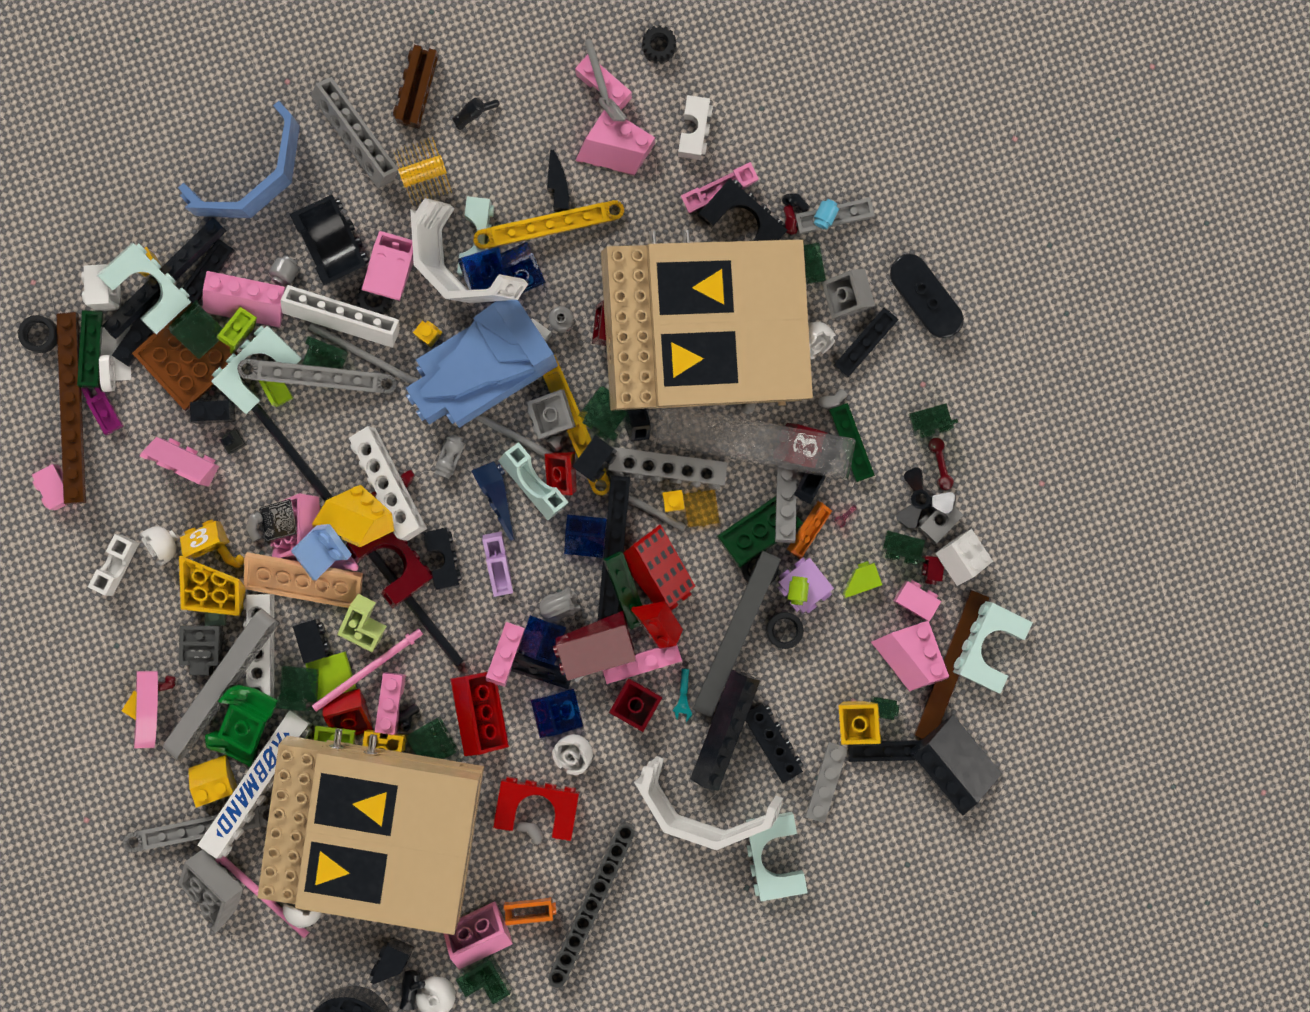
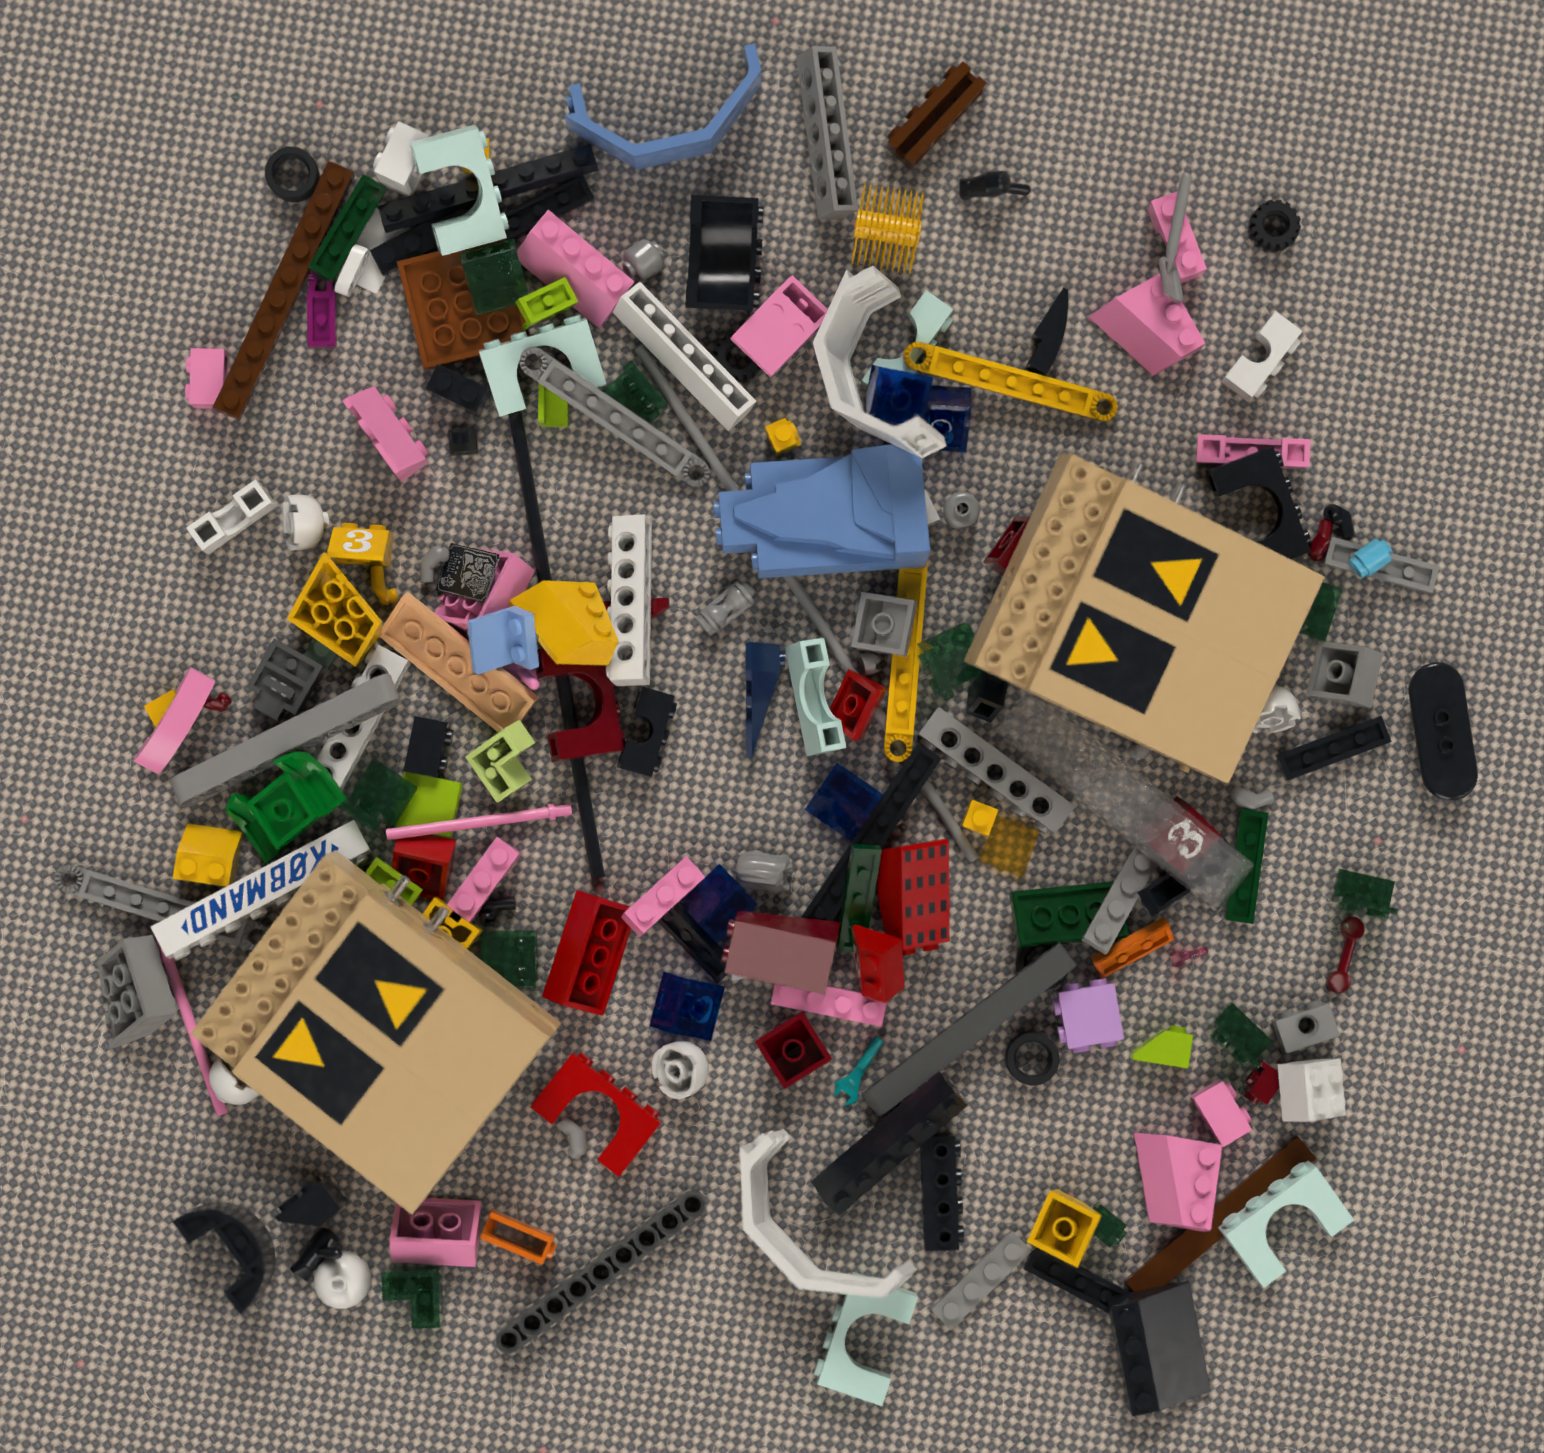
camera: 30 degrees right, 0 degrees up
(497, 564) = (713, 776): lavender slope -> none
(595, 459) = (909, 711): black brick -> none
(798, 590) = (1077, 1017): lime brick -> none
(911, 515) = (1272, 999): black piece -> none

